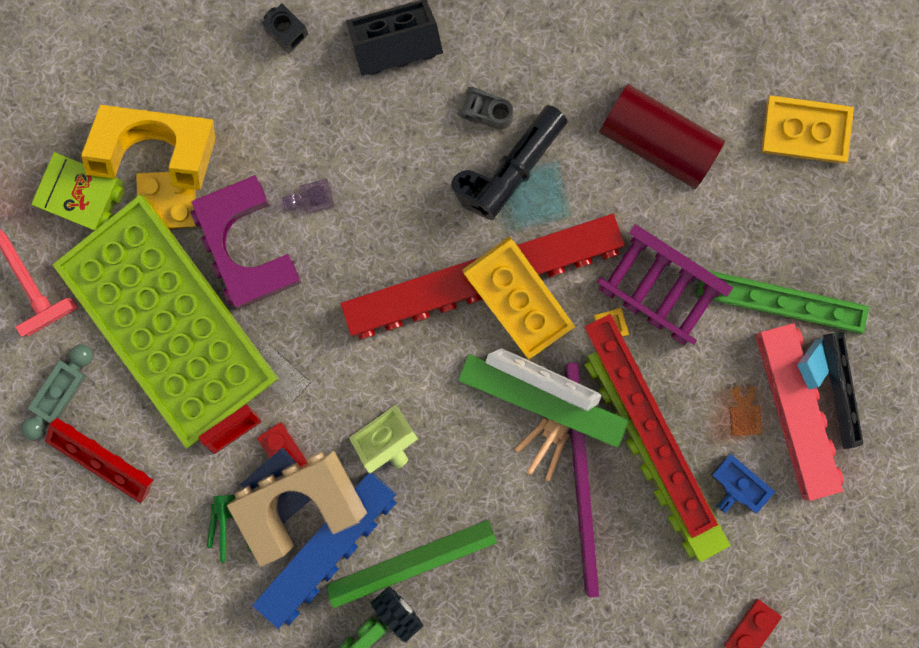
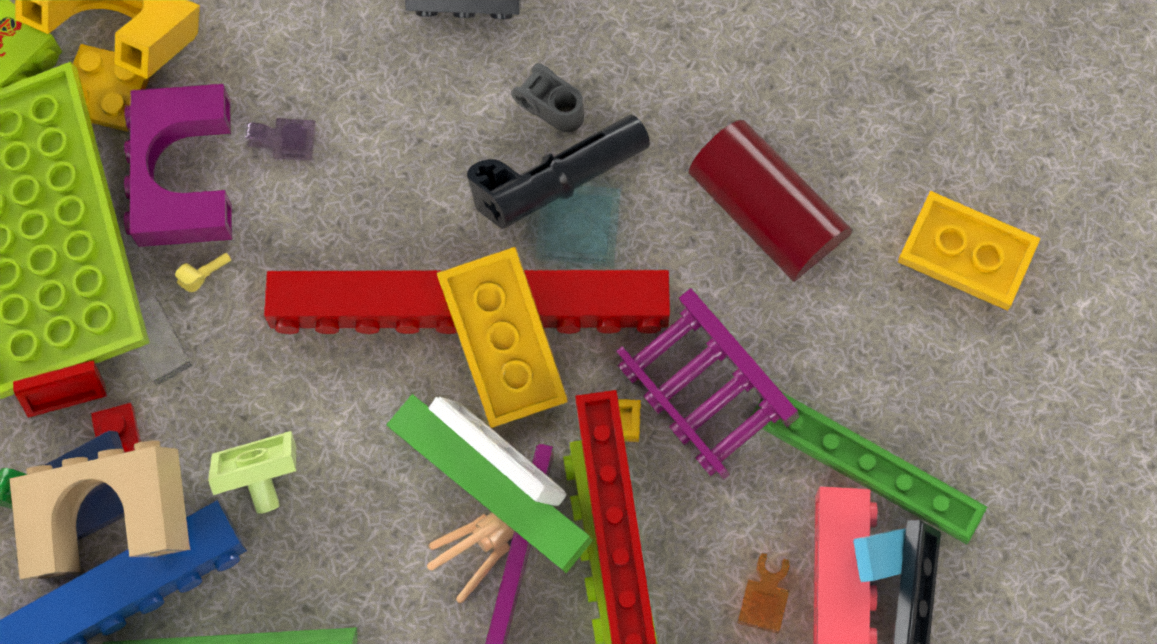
camera: 25 degrees right, 15 degrees down
(285, 321) = (192, 279): none -> light yellow hand

